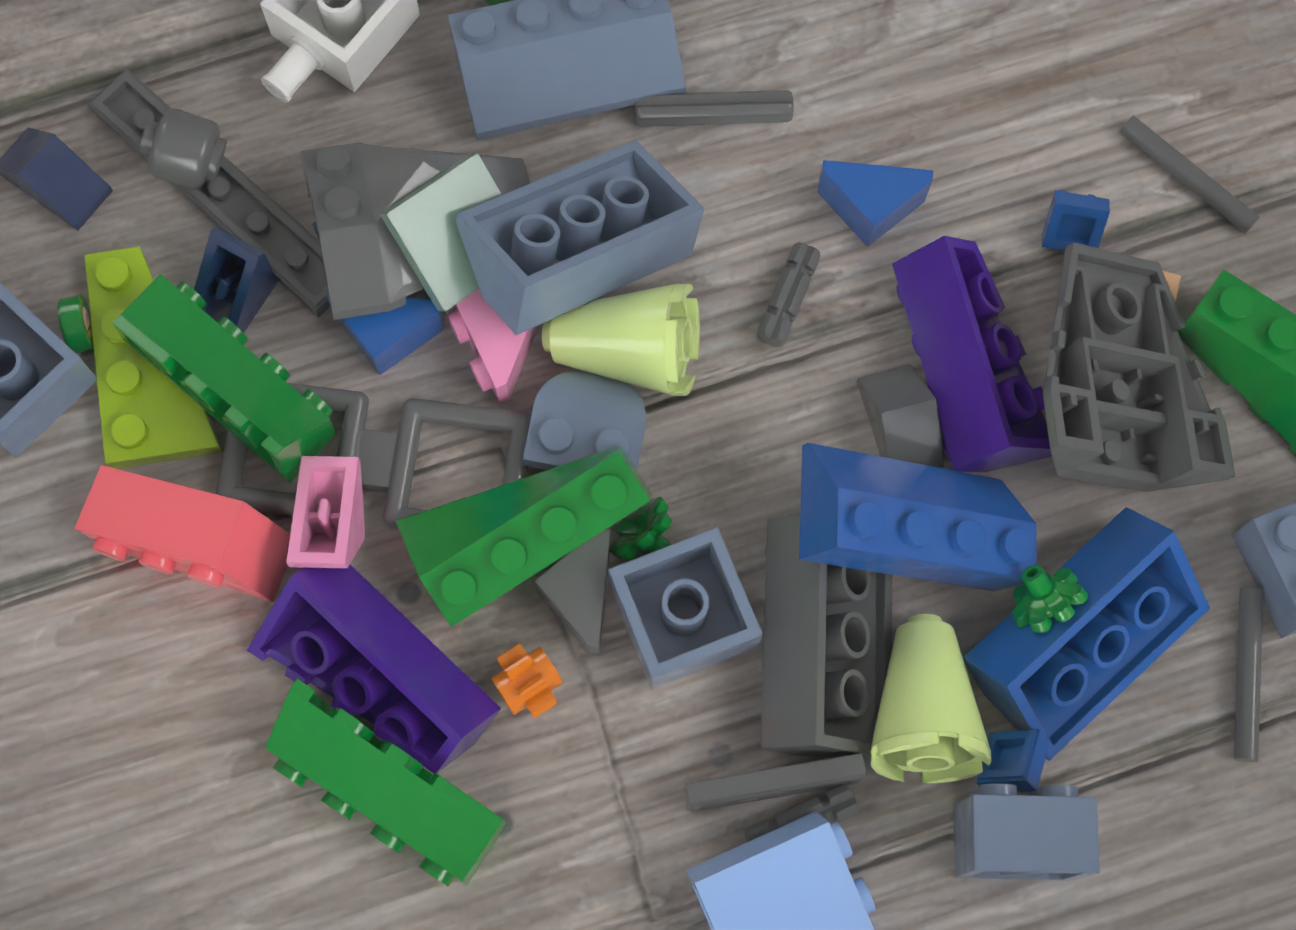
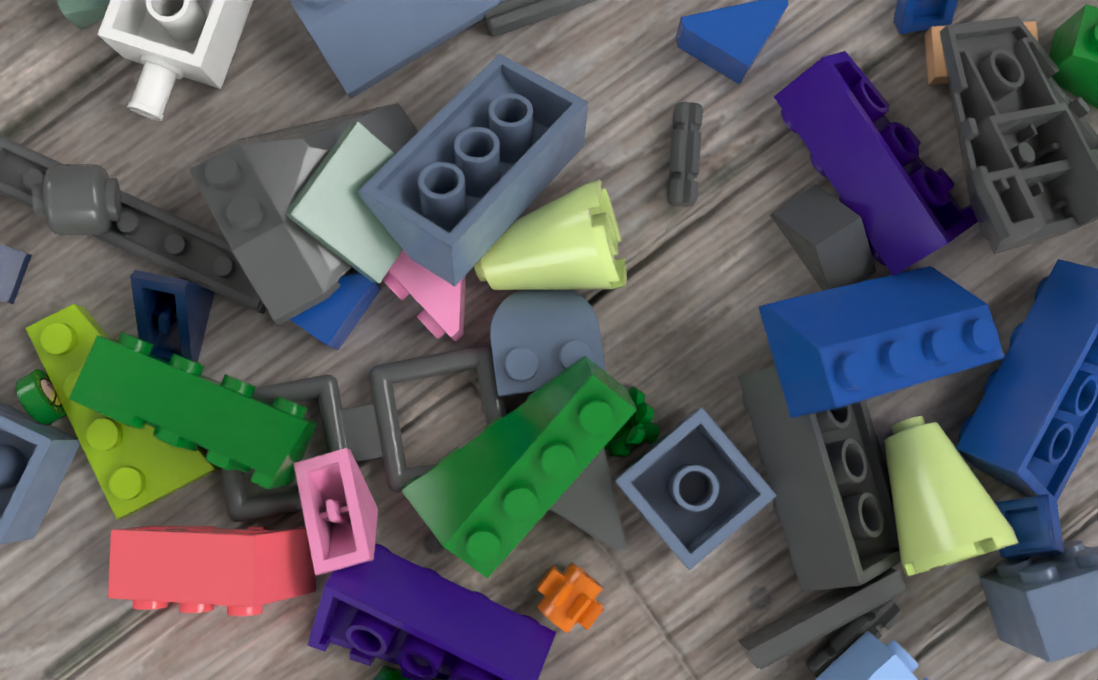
camera: 10 degrees left, 10 degrees up
(1046, 597) = (1022, 374): green plant -> none

